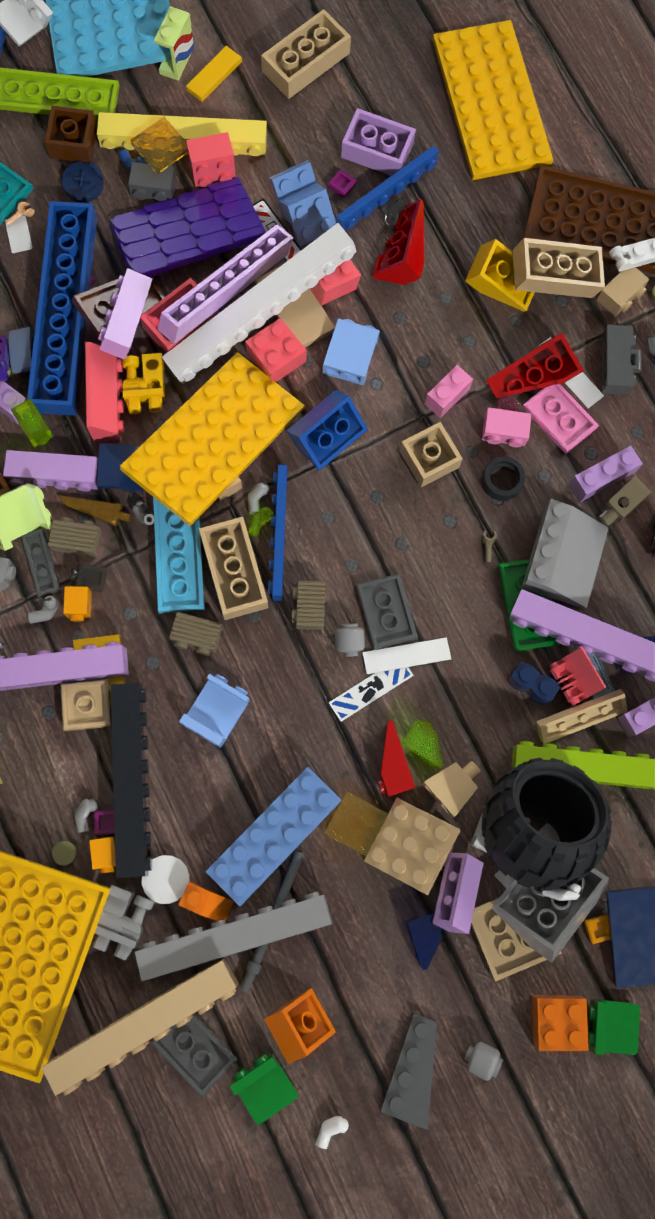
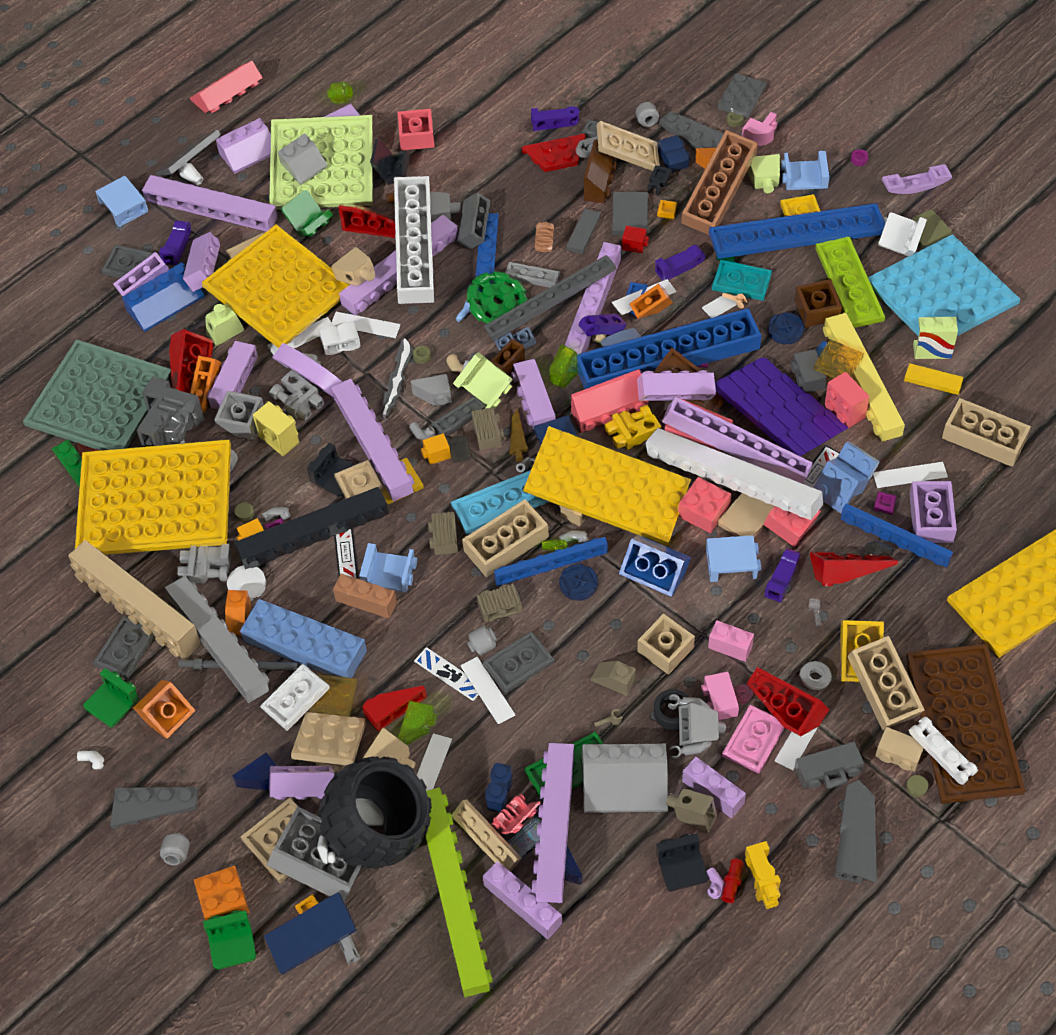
camera: 80 degrees right, 20 degrees down
(49, 734) = (323, 468): none -> black bracket
(179, 753) = (346, 554): none -> white sticker
(243, 747) = (365, 596): none -> nougat brick
(313, 514) = (578, 582): none -> dark blue tile
(318, 142) = (909, 474): none -> white sticker
(343, 868) = (295, 697): none -> white tile
(389, 312) = (783, 575): none -> dark purple leg
(435, 297) = (814, 604): none -> clear hand
(444, 520) = (615, 676): none -> dark tan slope
(475, 746) = (433, 760): none -> white sticker
(513, 322) = (815, 667): none -> light grey piece
(538, 461) = (696, 725): none -> light grey torso

